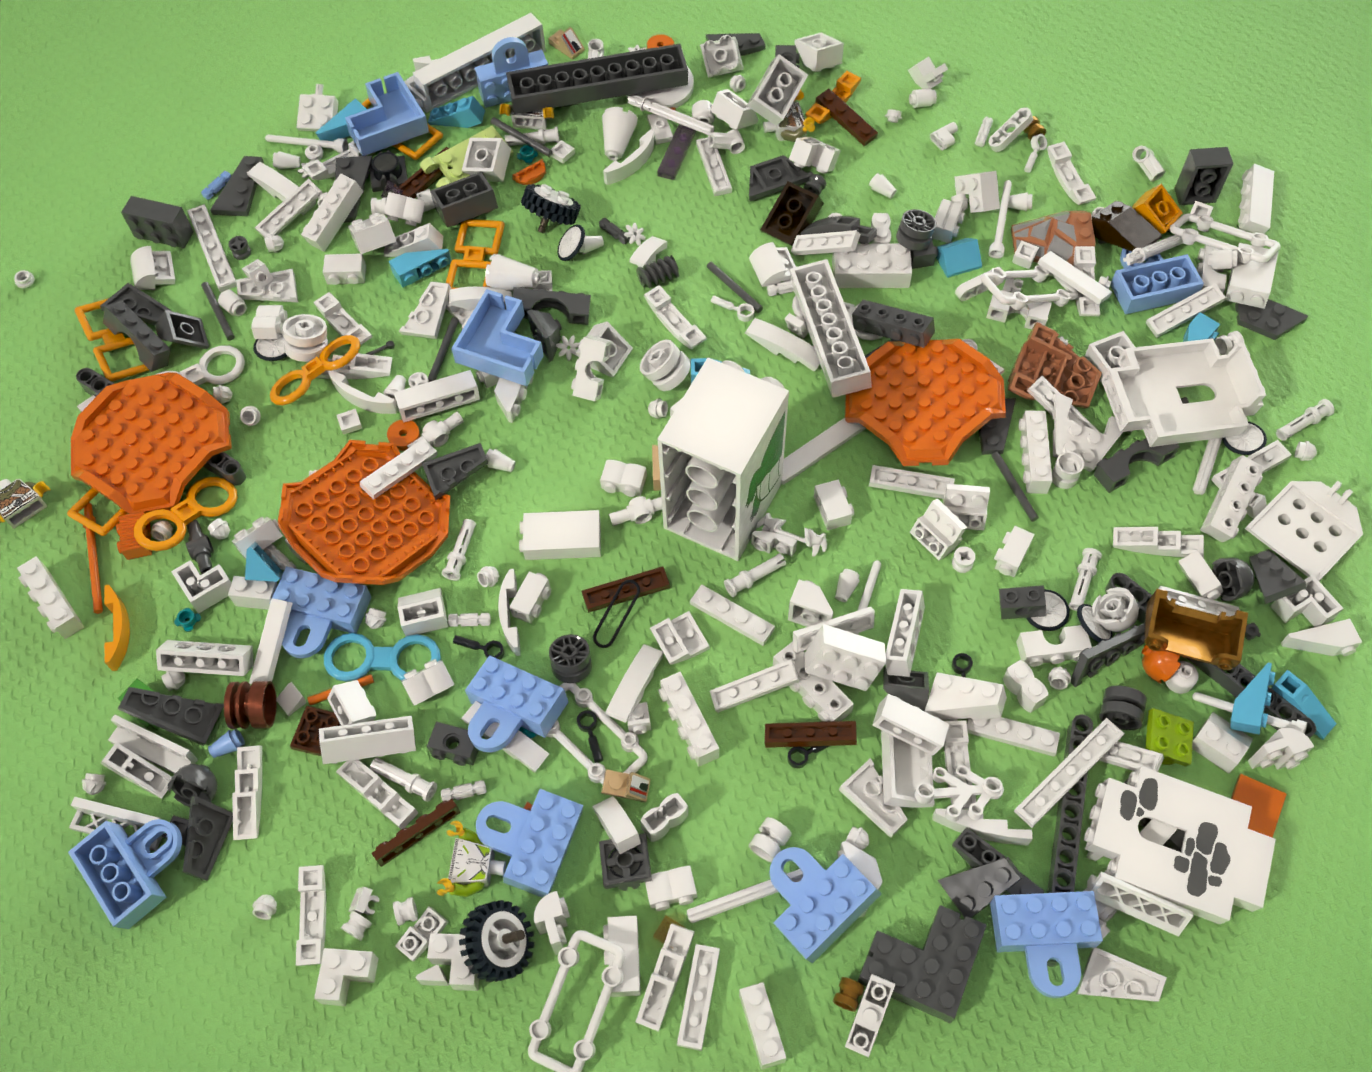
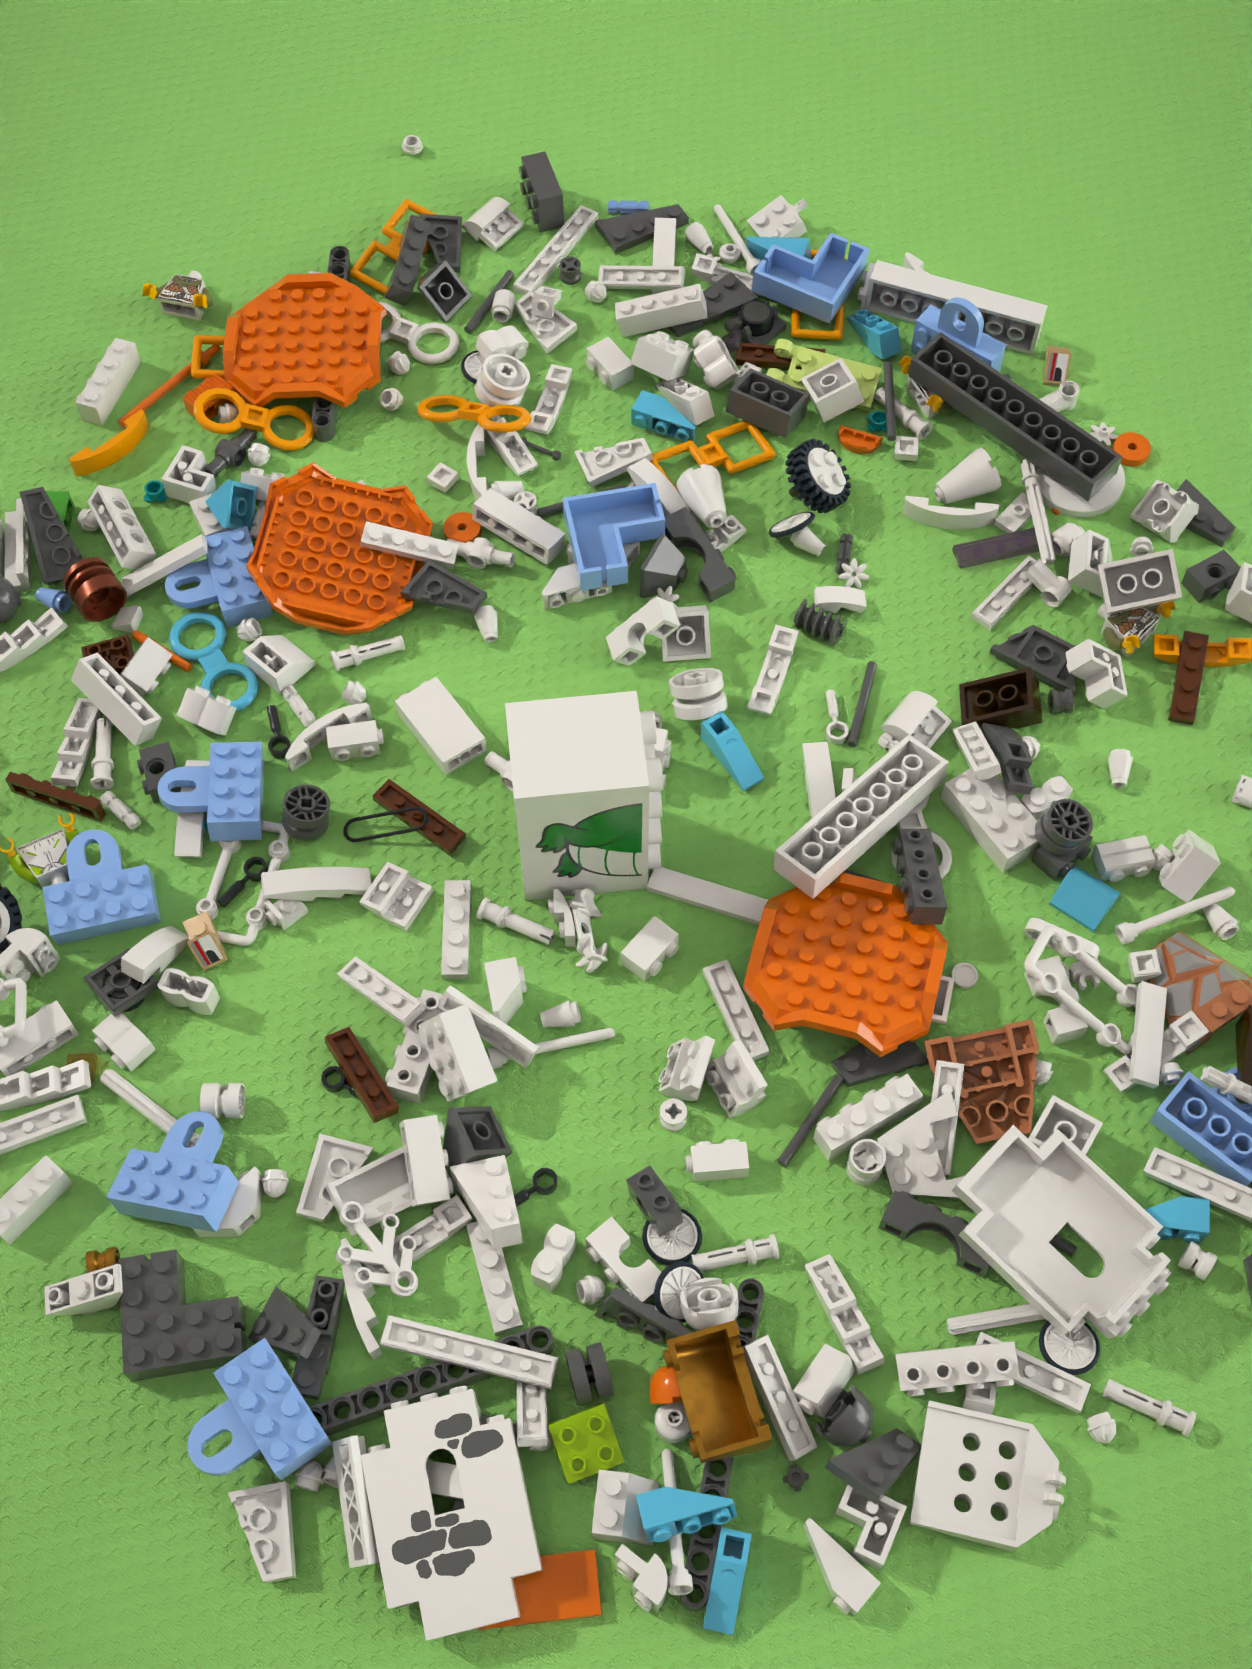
camera: 55 degrees right, 0 degrees up
(689, 719) = (308, 954): white brick -> none
(893, 115) = (1233, 723): white plate -> none
(904, 632) = (533, 1098): white brick -> none

